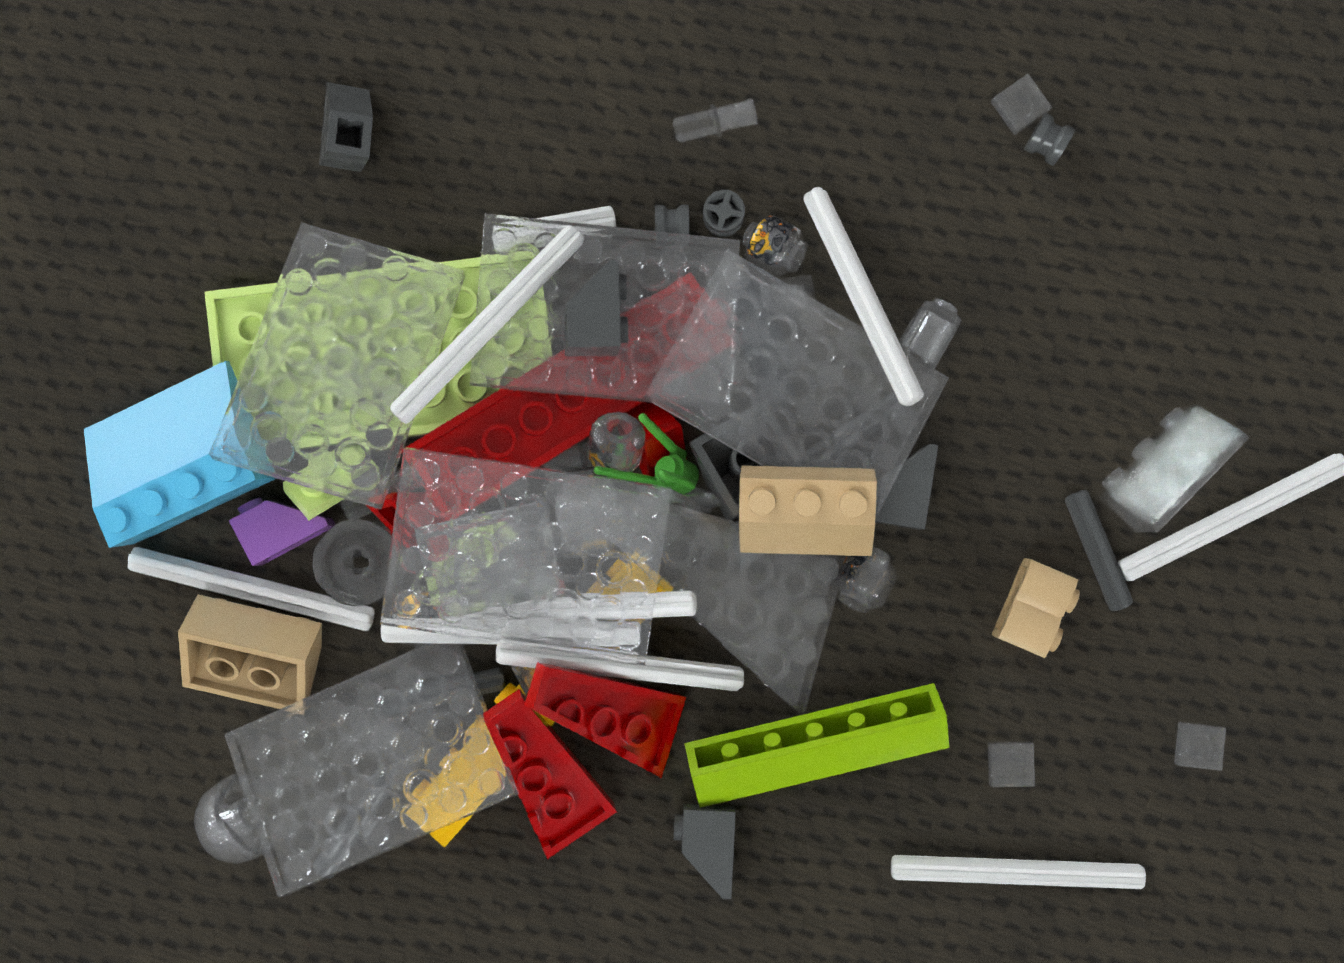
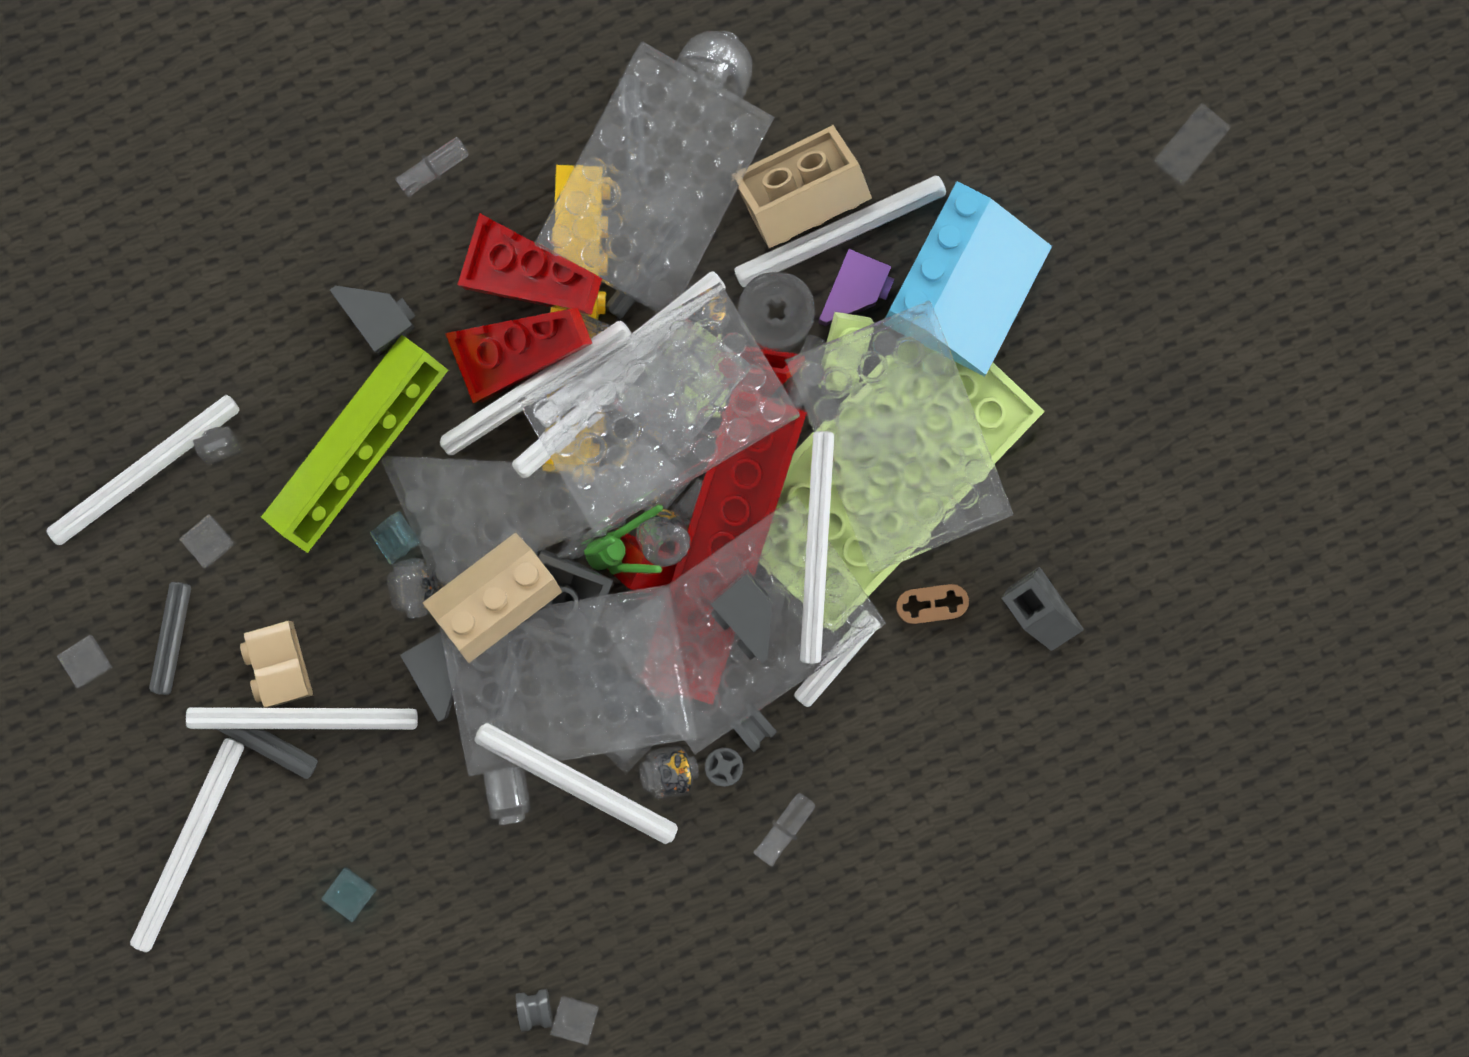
camera: 140 degrees right, 0 degrees up
(430, 216) = (932, 613): none -> medium nougat beam
(555, 933) = (432, 166): none -> clear axle
(847, 635) = (395, 537): none -> clear light blue plate
(937, 841) = (217, 445): none -> clear plate
(1053, 545) = (301, 718): none -> white axle
(1109, 706) = (170, 638): none -> dark grey axle
(1129, 363) = (349, 894): none -> clear light blue plate
(1170, 468) = (262, 839): clear slope -> none

